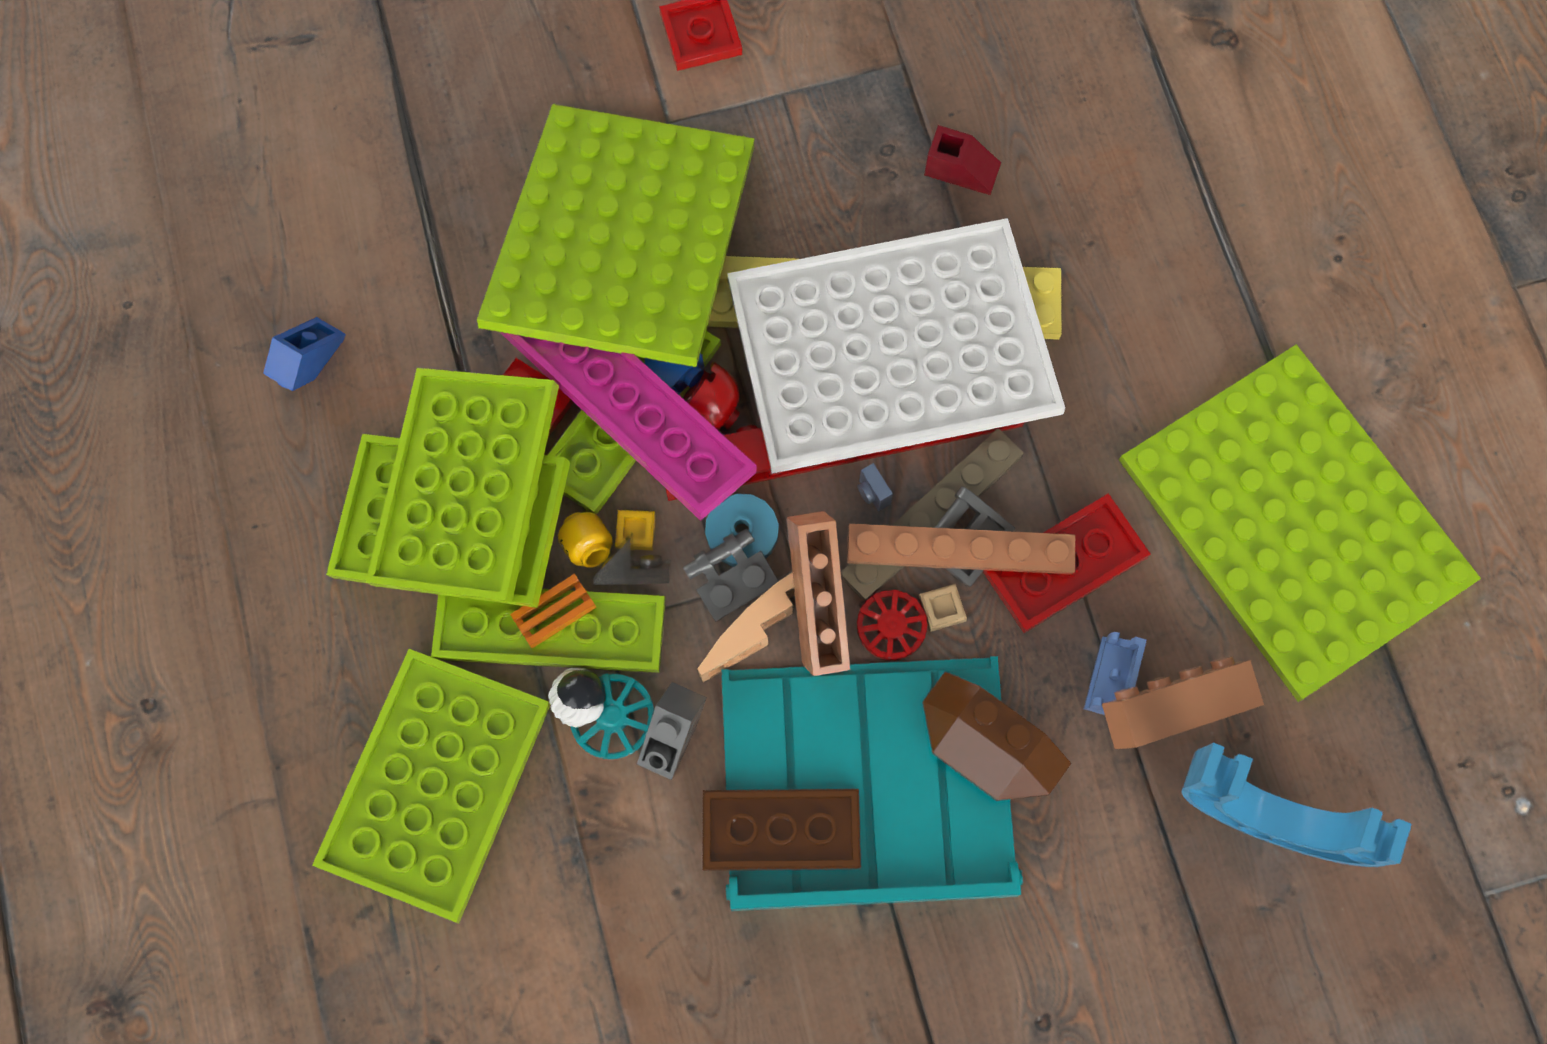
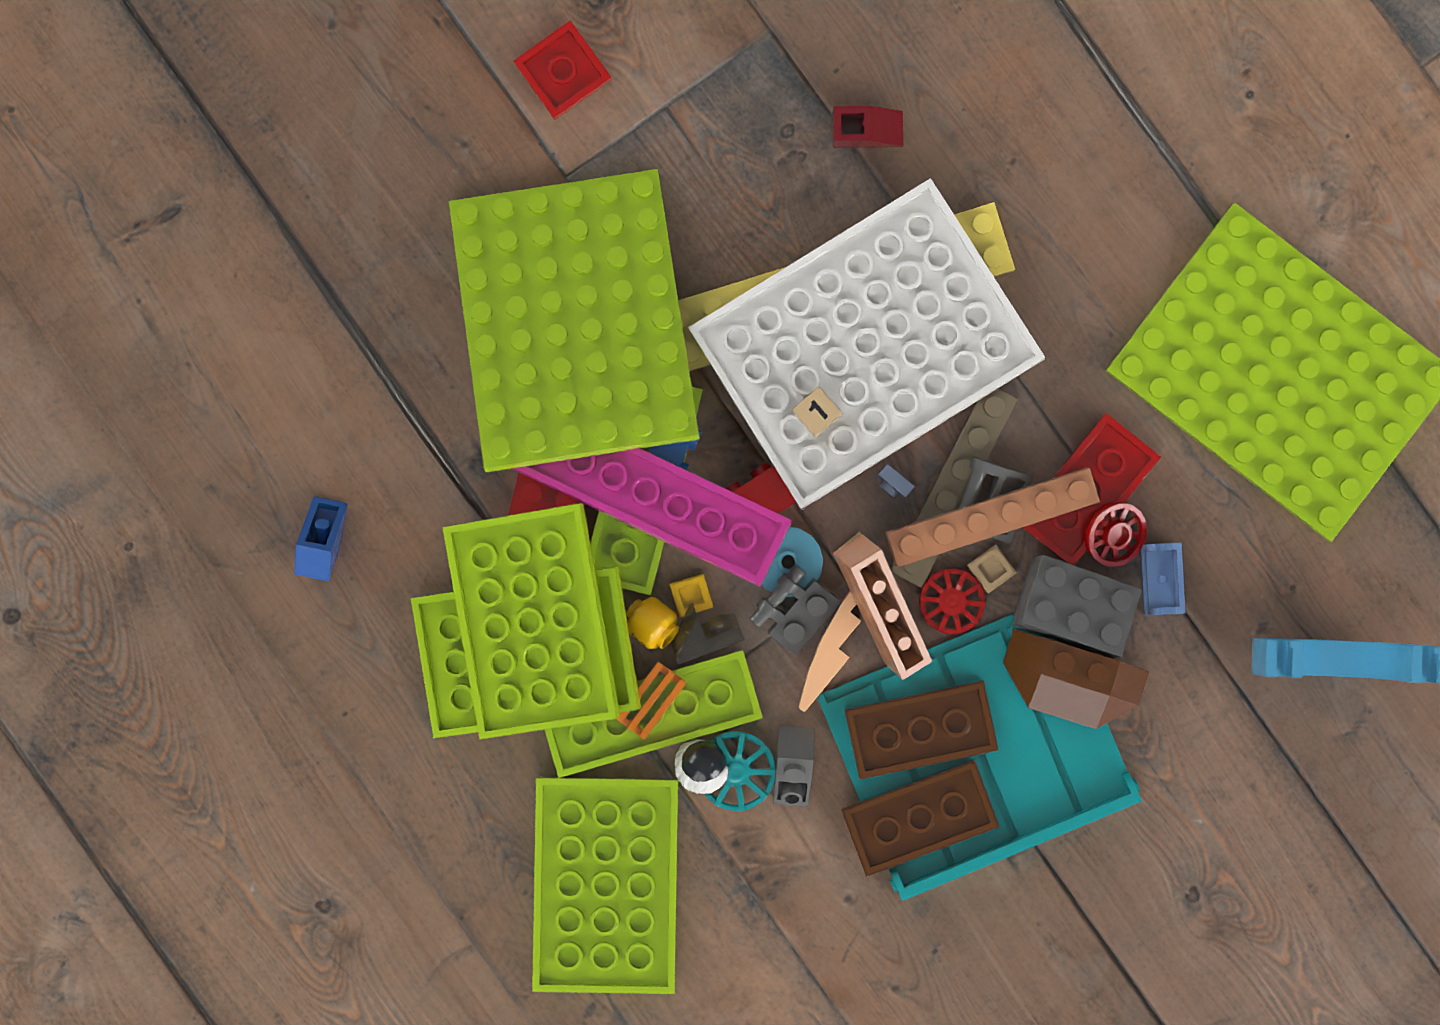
camera: 25 degrees left, 15 degrees up
(715, 397) = (718, 453): red cylinder -> none
(815, 739) = (921, 729): none -> reddish brown tile
(821, 383) = (817, 412): none -> tan tile
(1018, 665) = (1076, 607): none -> dark grey brick
(1080, 613) = (1116, 534): none -> red wheel
(1181, 704) = (1229, 589): nougat brick -> none

